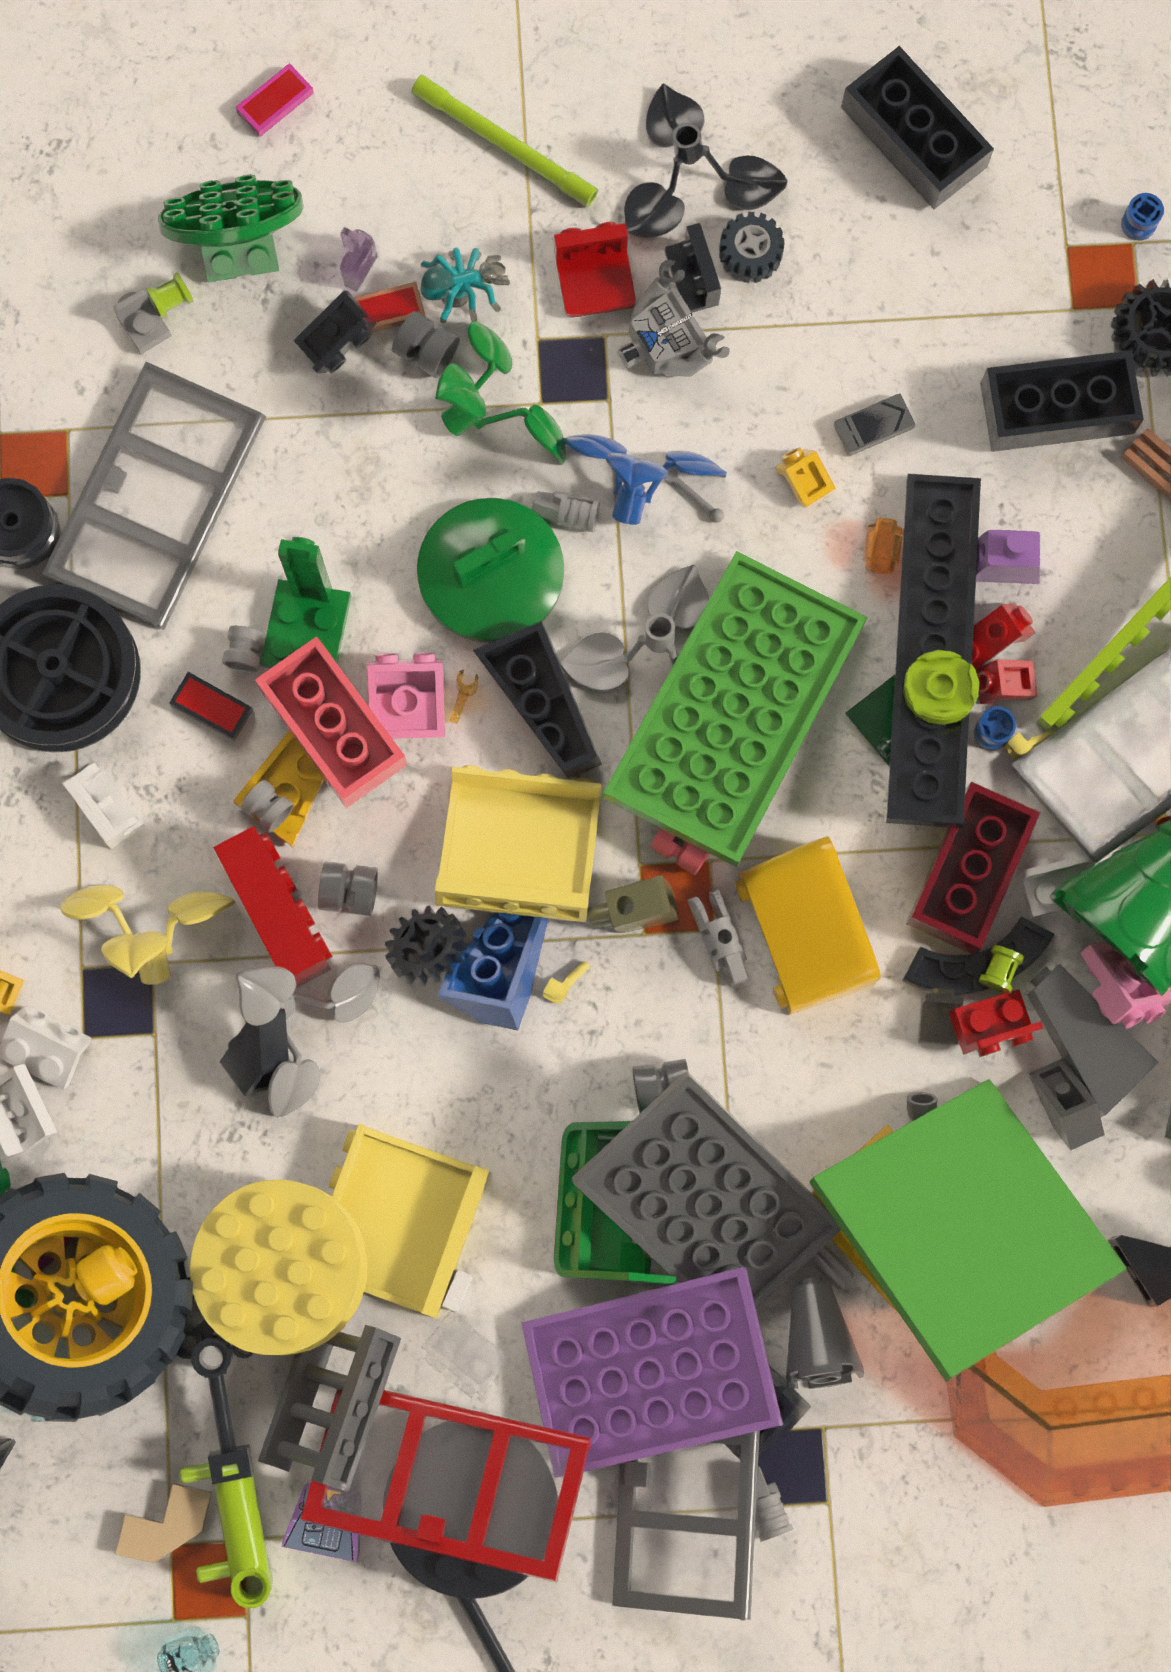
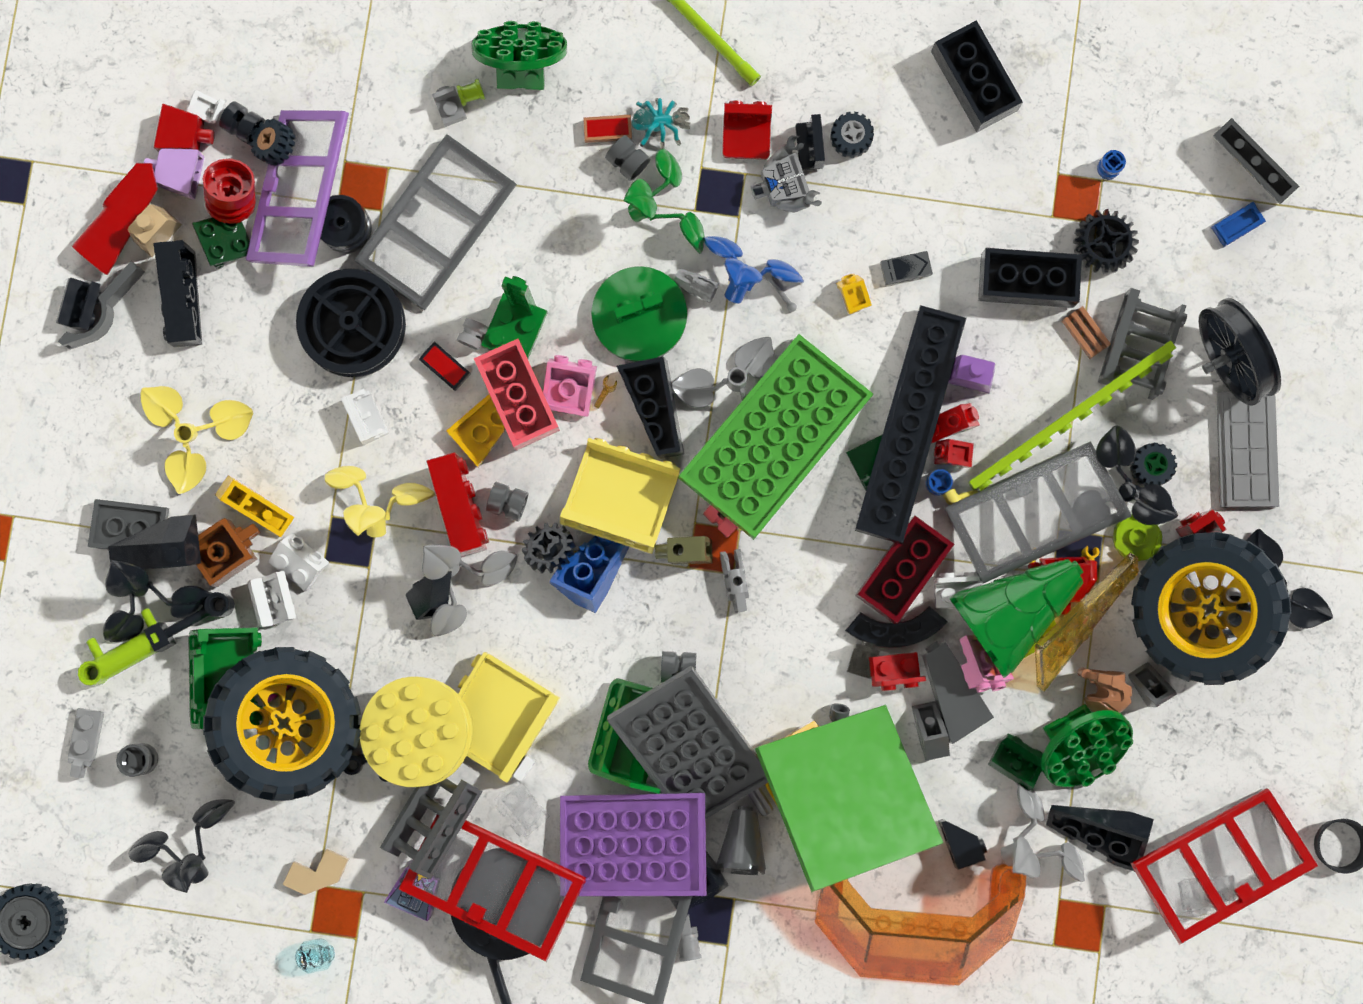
camera: 15 degrees right, 5 degrees up
(105, 1275) = (306, 716): yellow head -> none
(235, 1490) = (363, 860): lime piece -> none
(267, 806) = (466, 439): light grey wheel -> none
(335, 333) = (571, 138): black bracket -> none
(358, 263) = (595, 95): clear purple bracket -> none
(557, 991) = (625, 592): light yellow hand -> none
(679, 122) = (821, 40): black plant -> none
(810, 926) = (792, 585): yellow windscreen -> none
(882, 546) = (893, 349): clear orange brick -> none
(941, 687) = (908, 451): lime tile -> none
(1001, 969) = (908, 638): lime bush -> none

